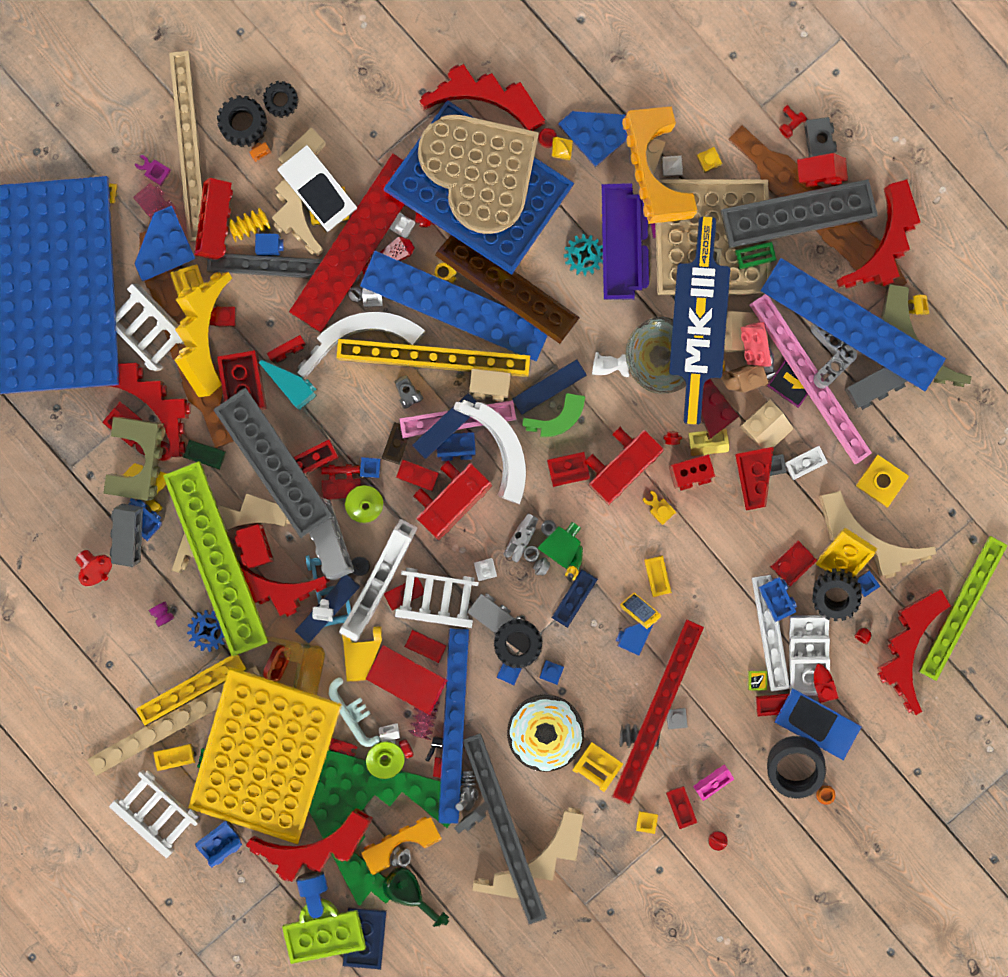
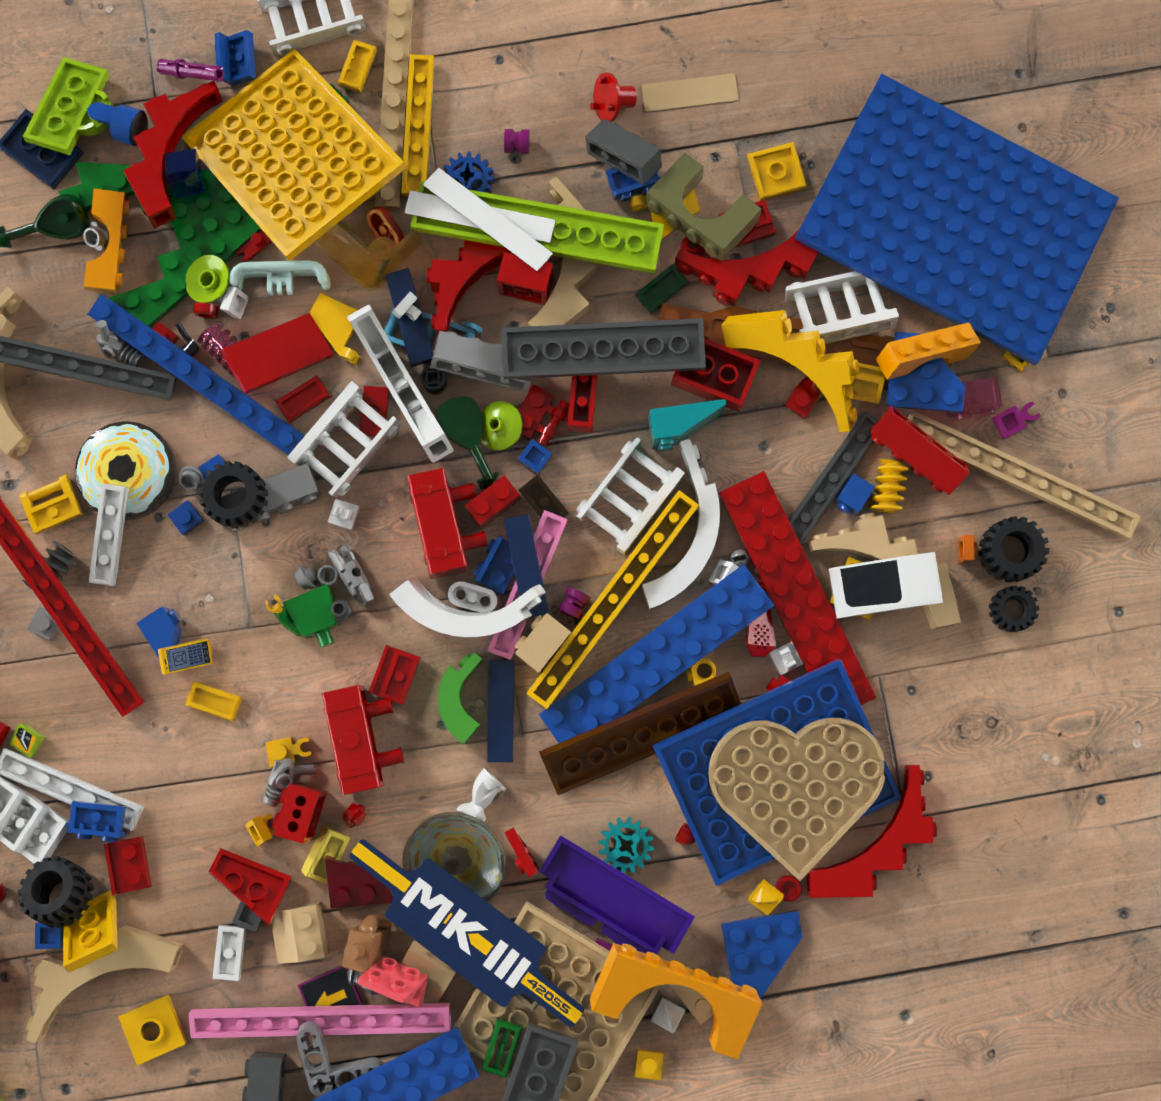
camera: 125 degrees right, 5 degrees down
(54, 520) = (689, 92): none -> tan sticker
(75, 427) = (776, 171): none -> yellow tile
(153, 260) = (906, 354): none -> light orange arch
(231, 594) = (488, 219): none -> white sticker
(232, 600) = (436, 208): none -> white sticker
(250, 875) = (181, 69): none -> magenta pin
(279, 353) = (722, 433): red plate -> none
(322, 821) = (184, 173): none -> piece
(350, 373) = (639, 518): none -> white fence
(379, 526) = (463, 425): none -> dark green piece
(408, 395) = (593, 548): dark grey plate -> none
(451, 382) = (577, 598): none -> magenta wheel
(469, 821) = (83, 333): dark grey plate -> none
(487, 450) = (473, 597): none -> white plate
(524, 685) = (190, 478): none -> light grey plate
(555, 222) = (684, 835): none -> red hinge
(574, 598) = (249, 593): dark blue tile -> none
(593, 714) = (108, 534): none -> white tile
(632, 312) = (524, 860): none -> red wing
(677, 498) = (283, 774): none -> light grey piece
(719, 492) = (259, 831): none -> yellow tile

